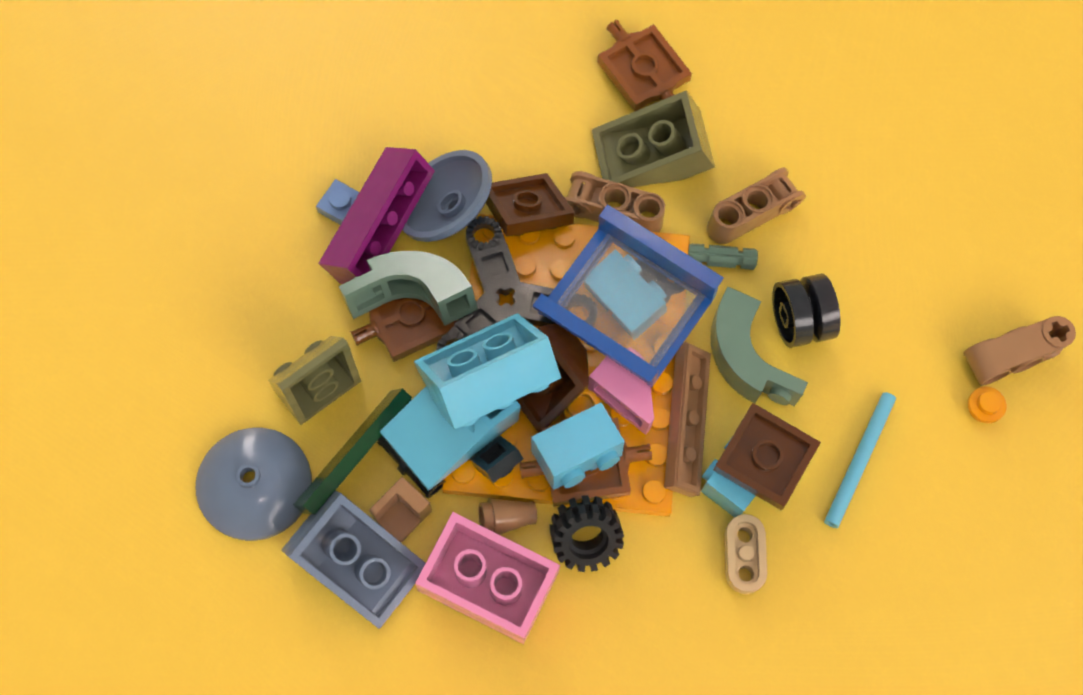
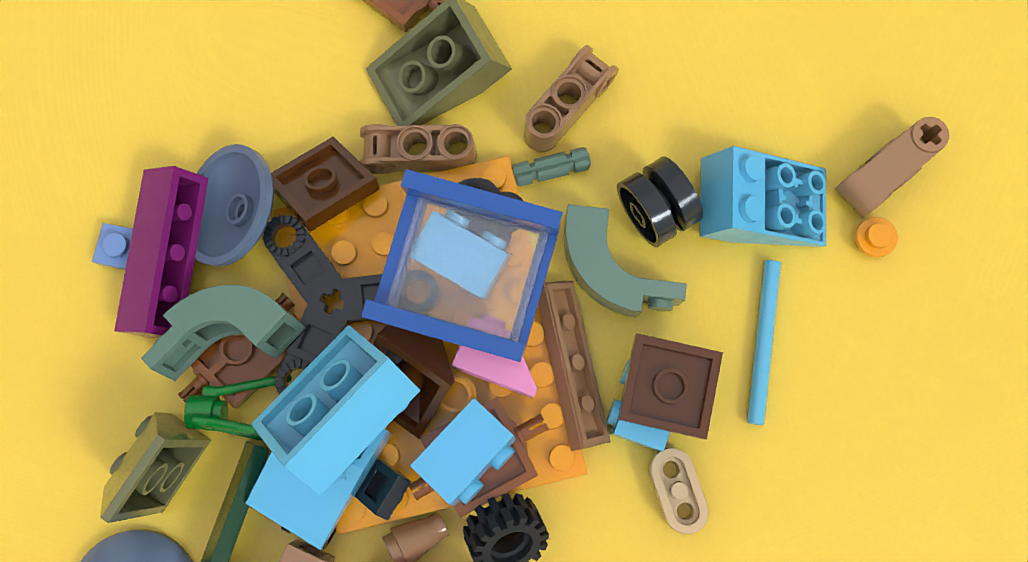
camera: 15 degrees left, 10 degrees up
(373, 354) = (211, 413): none -> green plant
(896, 340) = (762, 199): none -> medium azure slope

